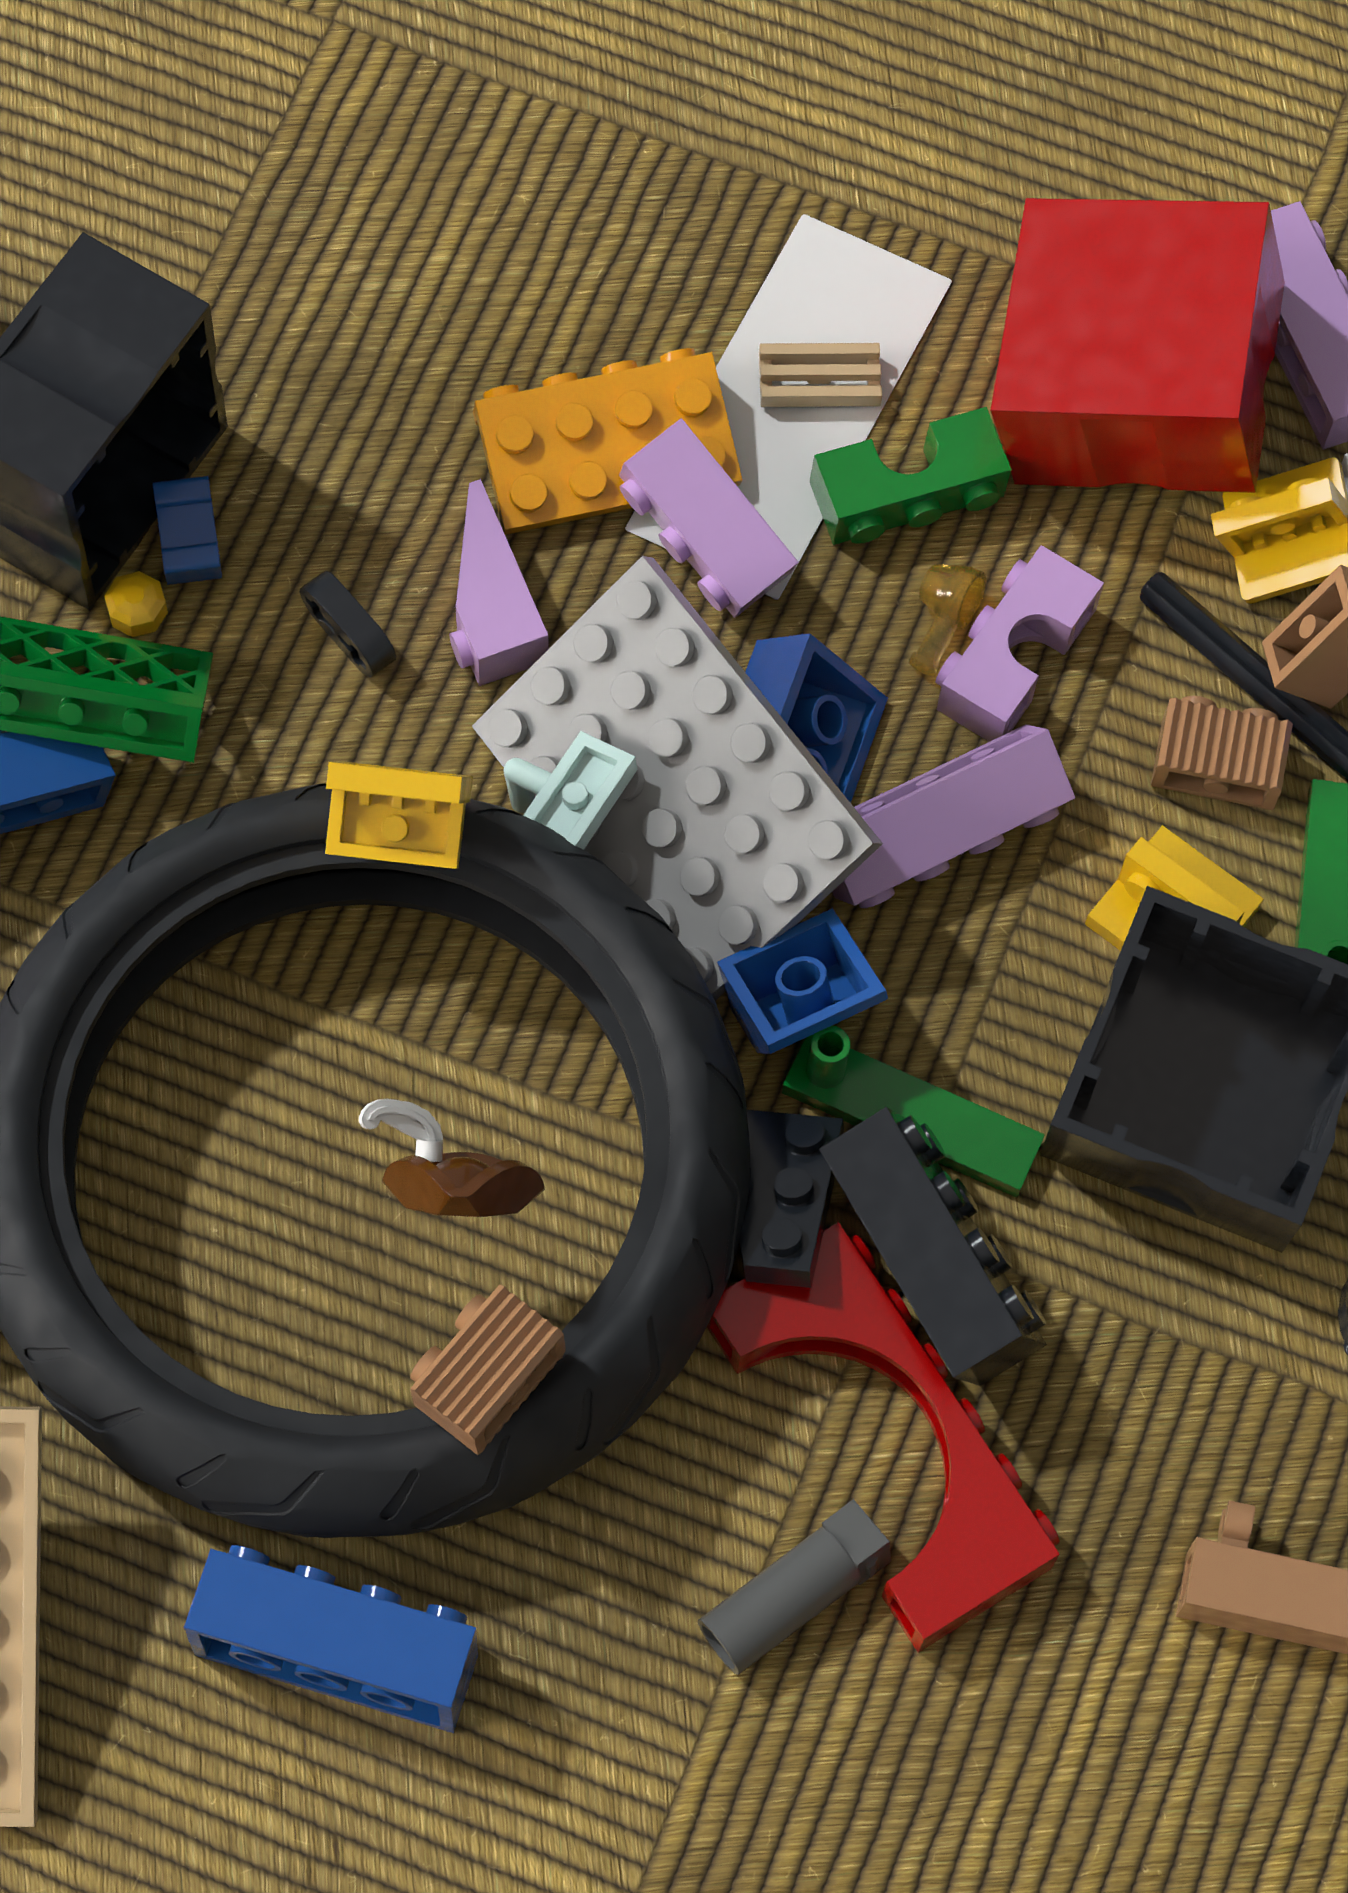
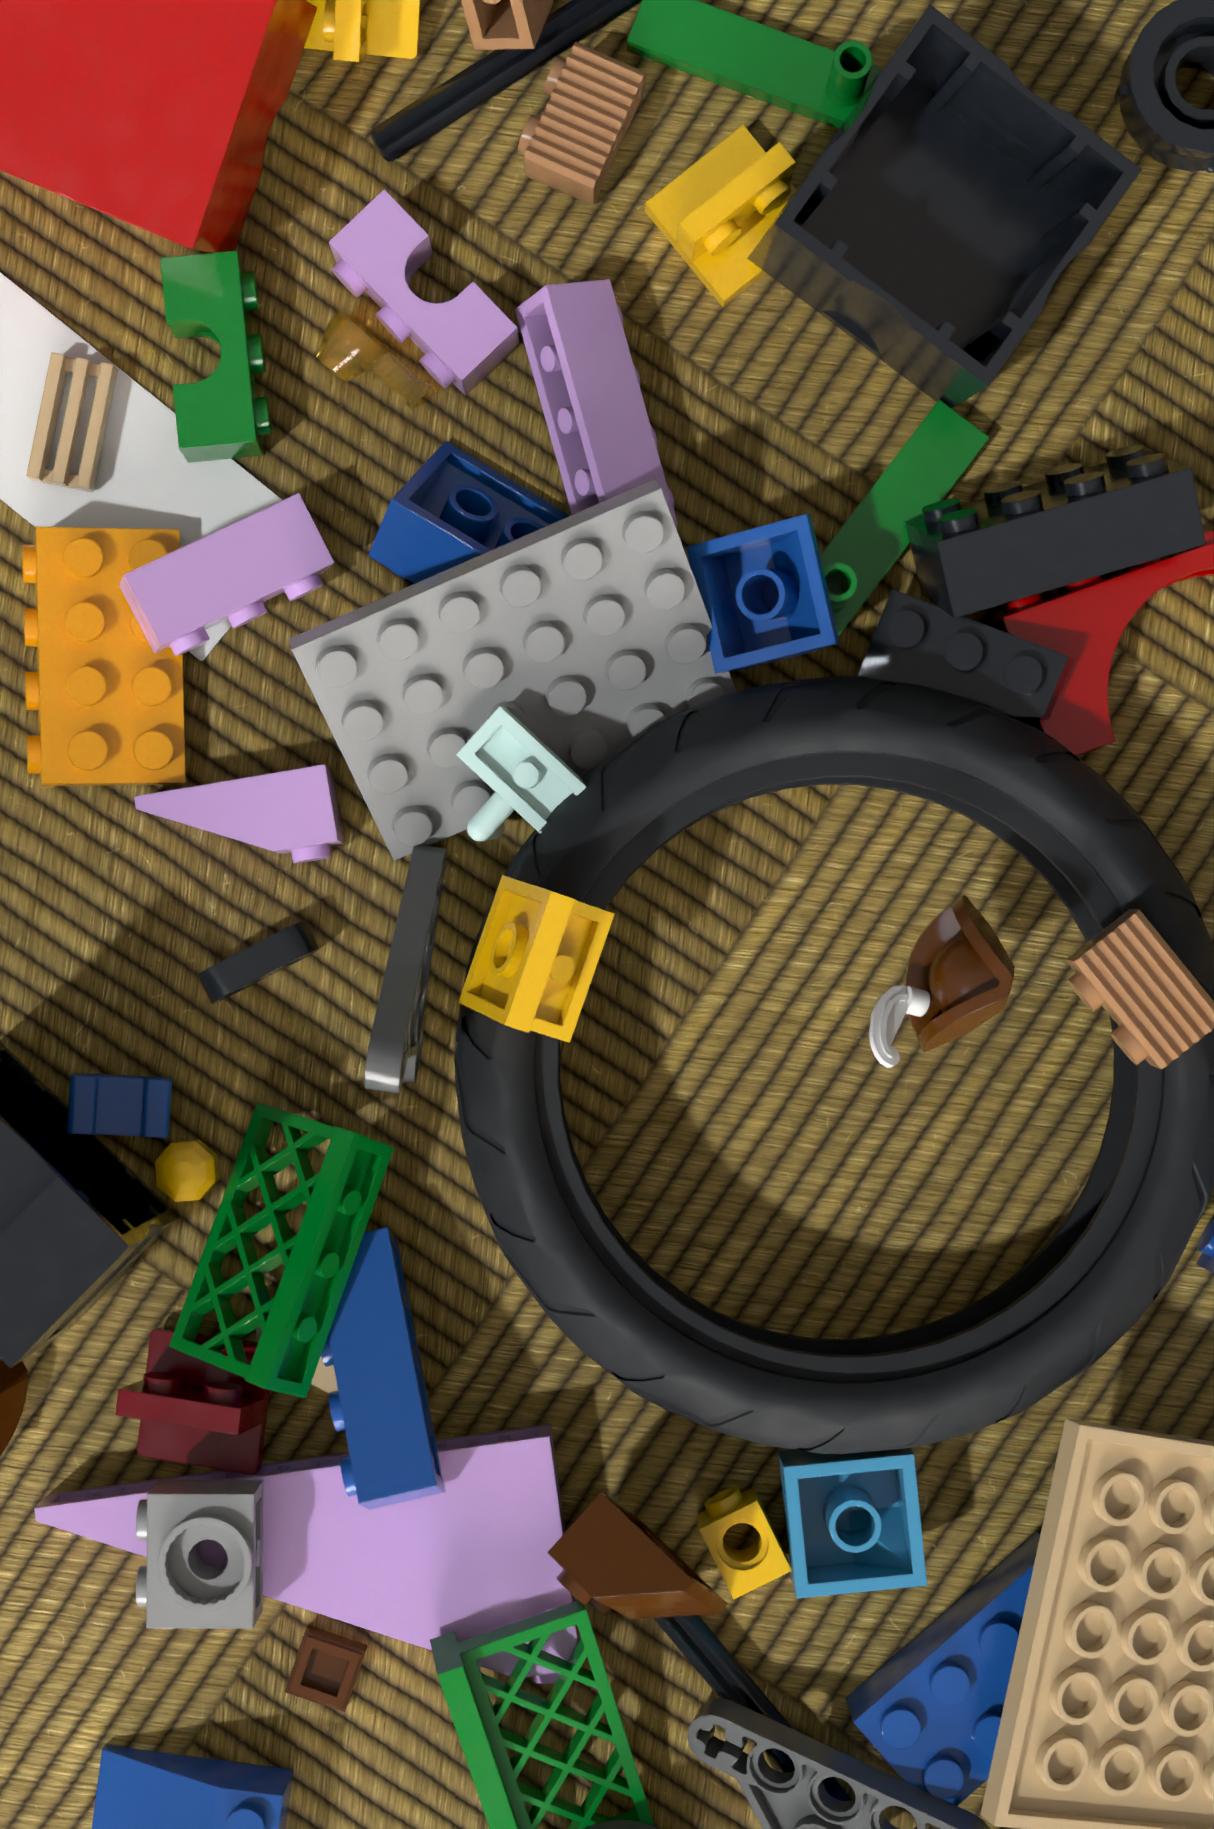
camera: 75 degrees left, 20 degrees up
(344, 724) = (399, 1016): none -> dark grey beam

